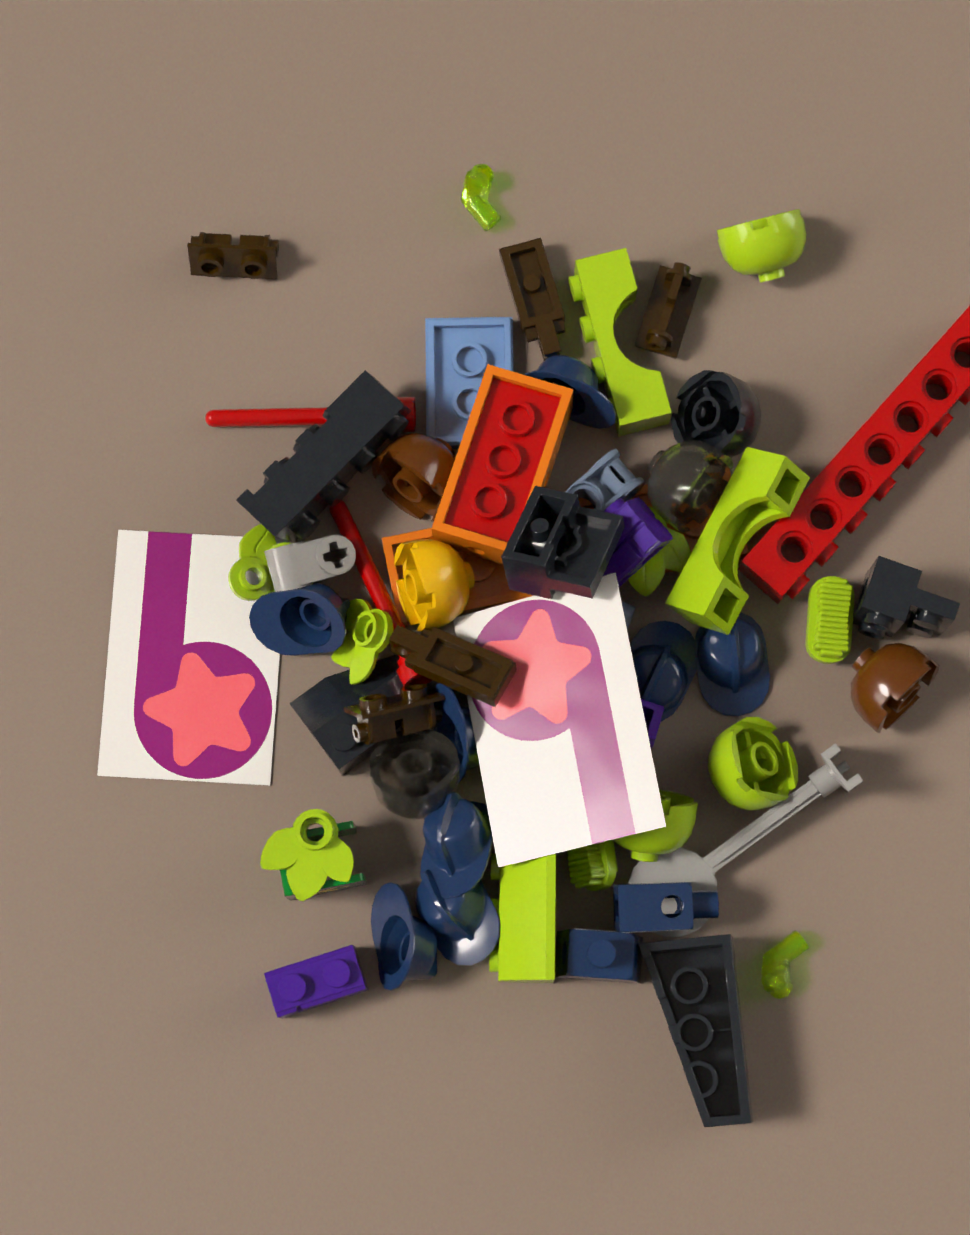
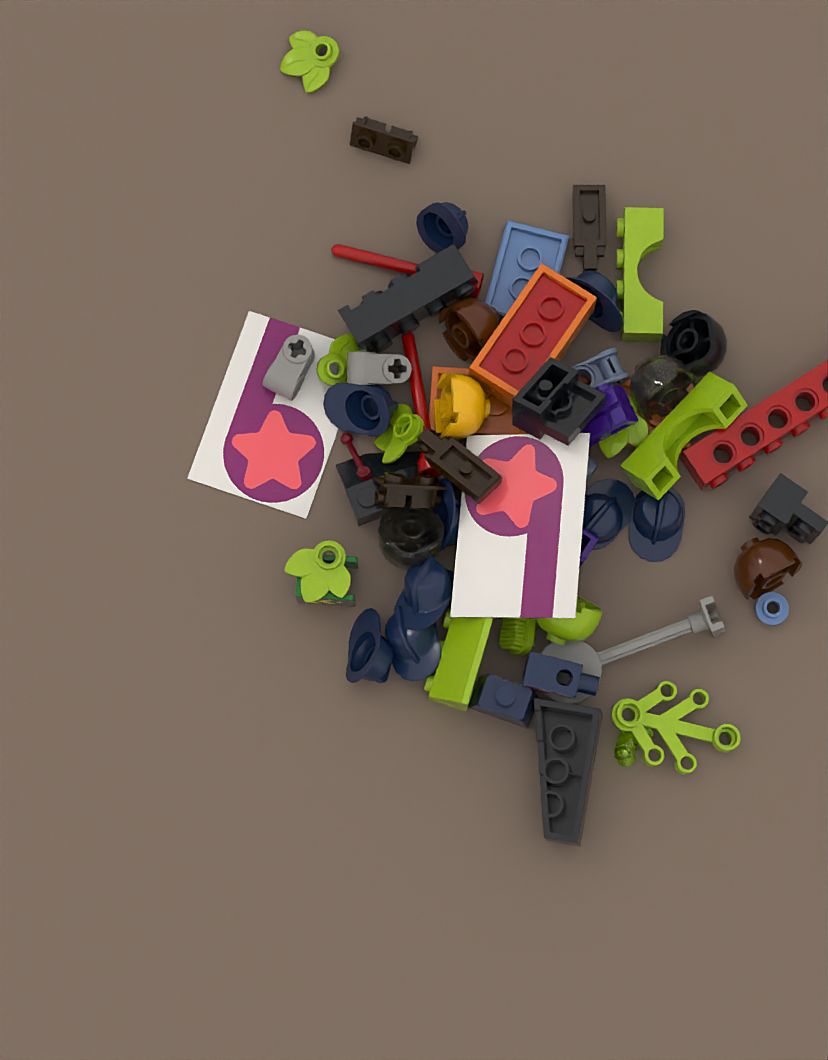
camera: 15 degrees right, 0 degrees up
(103, 180) = (305, 59): none -> lime plate
(191, 599) = (287, 372): none -> light grey piece
(316, 981) = (300, 662): dark purple brick -> none
(329, 705) = (363, 472): none -> dark red hinge
(343, 349) = (442, 226): none -> dark blue piece
(476, 194) = (567, 143): clear neon green arm -> none
(668, 310) = (682, 261): dark brown hinge -> none
(752, 765) = (649, 596): lime cylinder -> none
(764, 244) = (763, 232): lime cylinder -> none
(824, 928) = (669, 725): none -> lime plant
(829, 620) = (734, 510): lime piece -> none
(904, 744) = (762, 612): none -> medium blue plate

